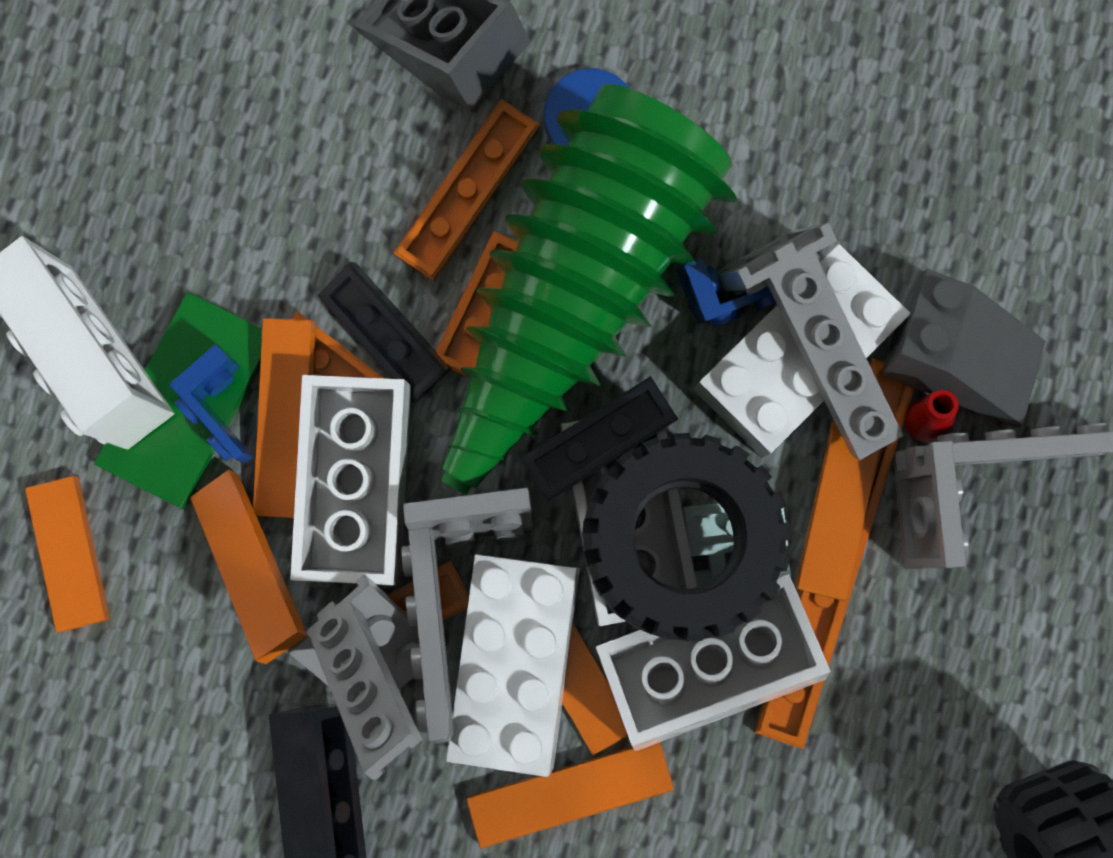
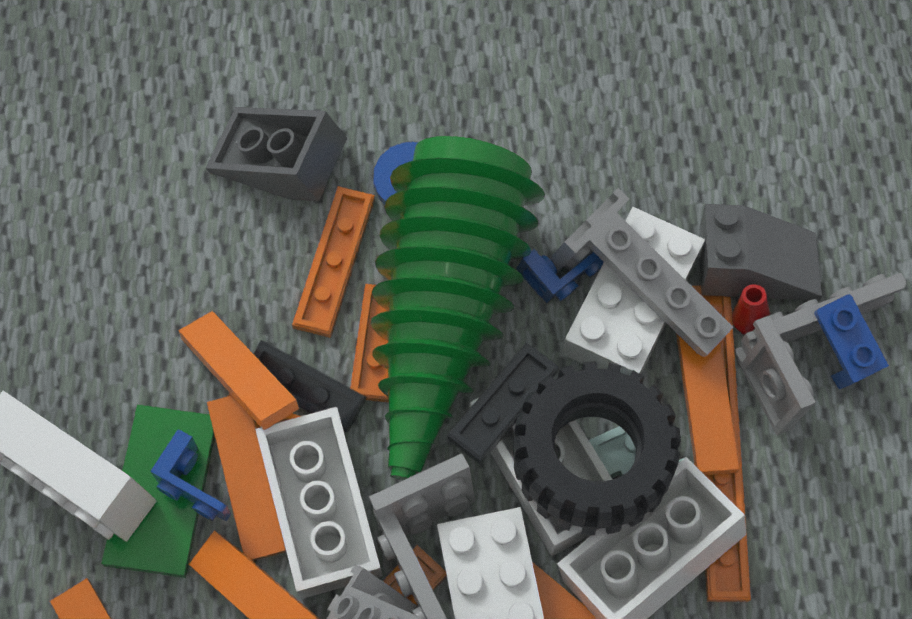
camera: 15 degrees left, 15 degrees down
(309, 294) = (238, 370): none -> orange tile
(1036, 497) = (850, 341): none -> blue bracket

